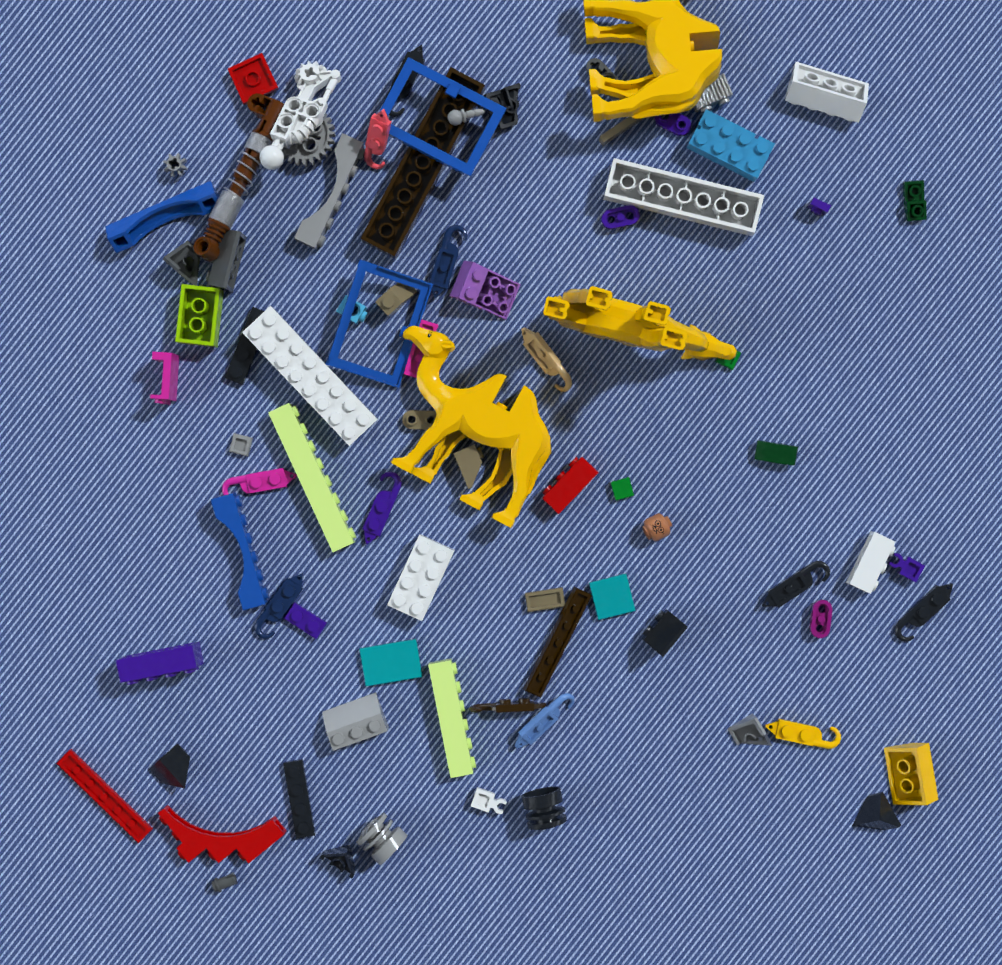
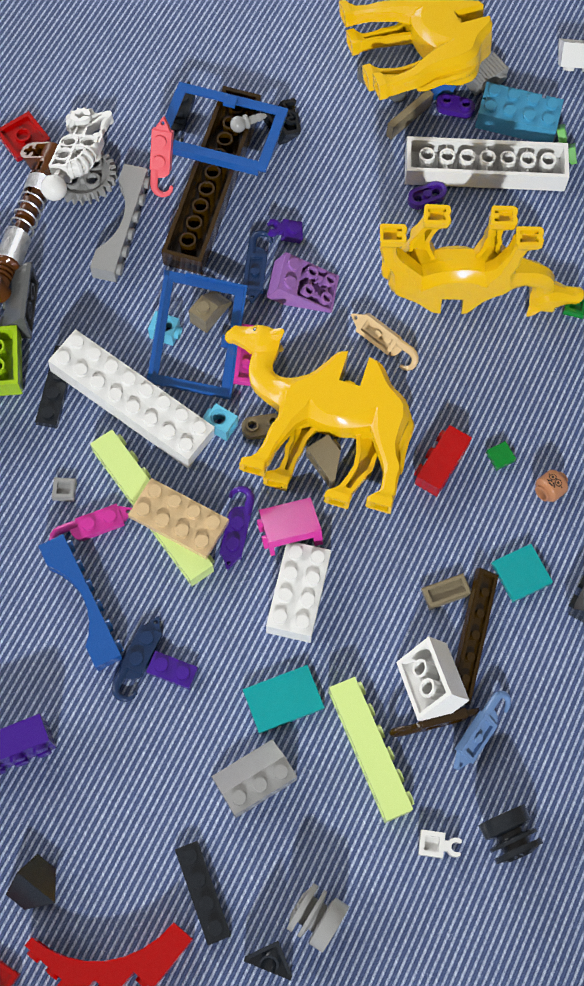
camera: 15 degrees left, 20 degrees down
(331, 497) = (178, 518): none -> tan plate
(393, 411) = (226, 428): none -> medium azure brick
(424, 520) = (289, 524): none -> panel
(483, 230) = (288, 229): none -> dark purple plate
(512, 675) = (432, 680): none -> white slope
(765, 188) = (562, 136): none -> bright green slope

